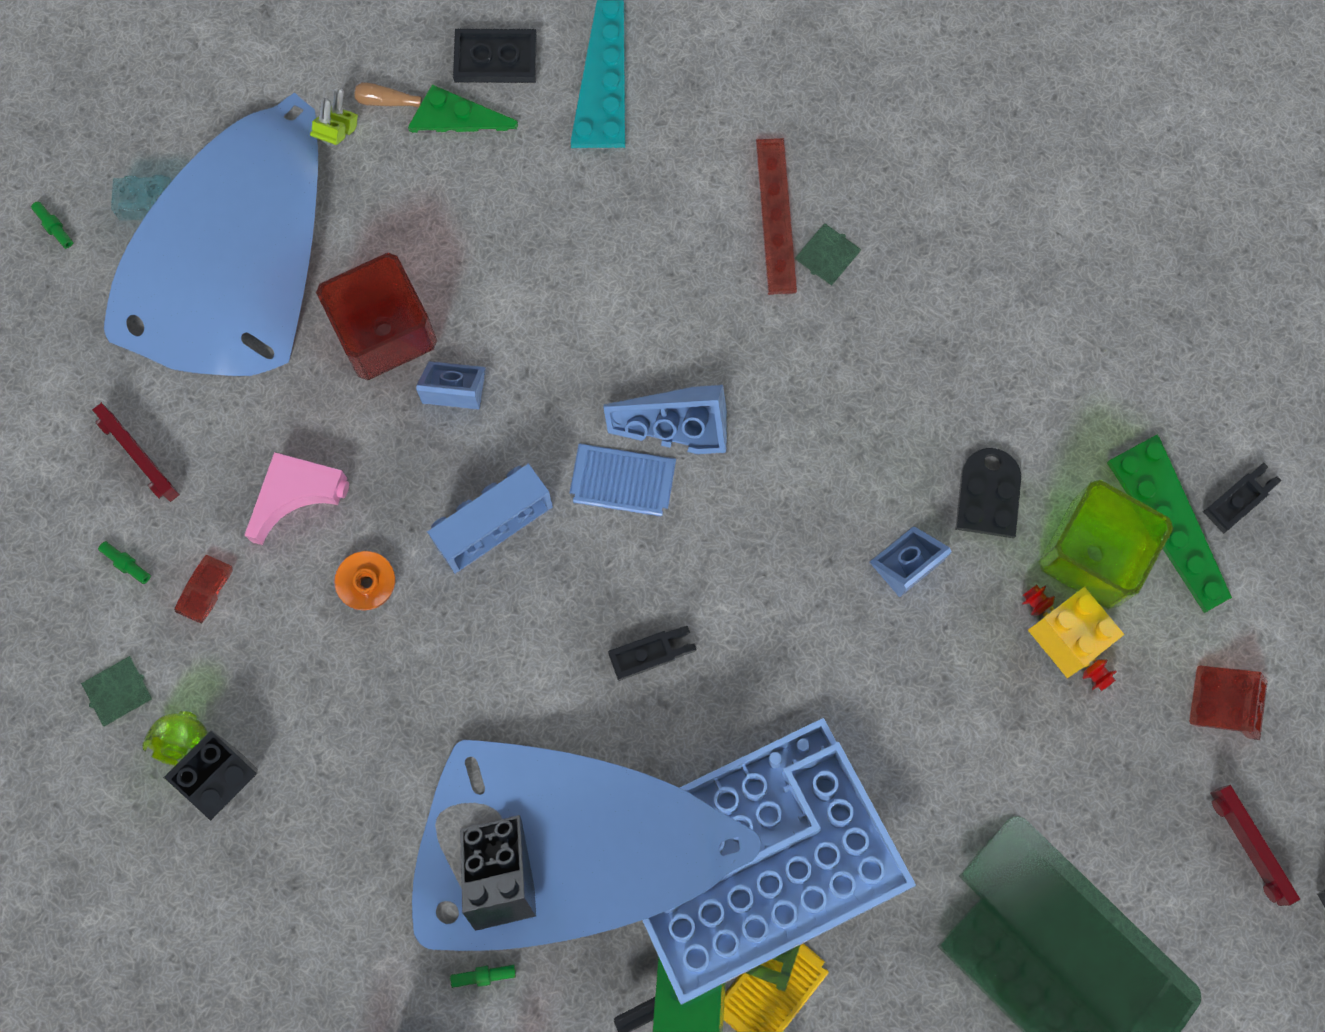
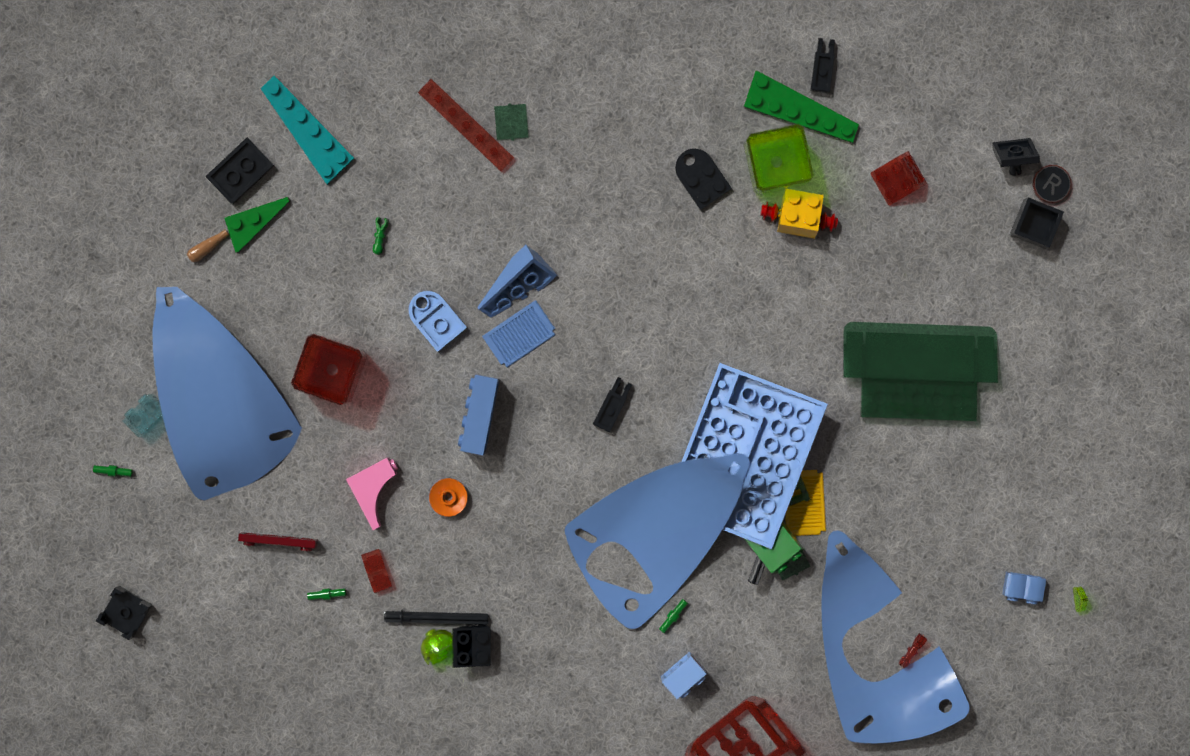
camera: 45 degrees left, 15 degrees up
(116, 691) = (385, 652): clear green piece -> none
(212, 706) = (436, 617): none -> black axle
(333, 120) = (199, 287): lime piece -> none
(451, 385) = (392, 364): medium blue slope -> none
(496, 874) = (637, 568): black slope -> none
(545, 380) = (436, 320): none -> light blue plate
(574, 242) = (377, 247): none -> green piece
(910, 559) = (691, 247): medium blue slope -> none
(1277, 885) = (988, 249): dark red plate -> none

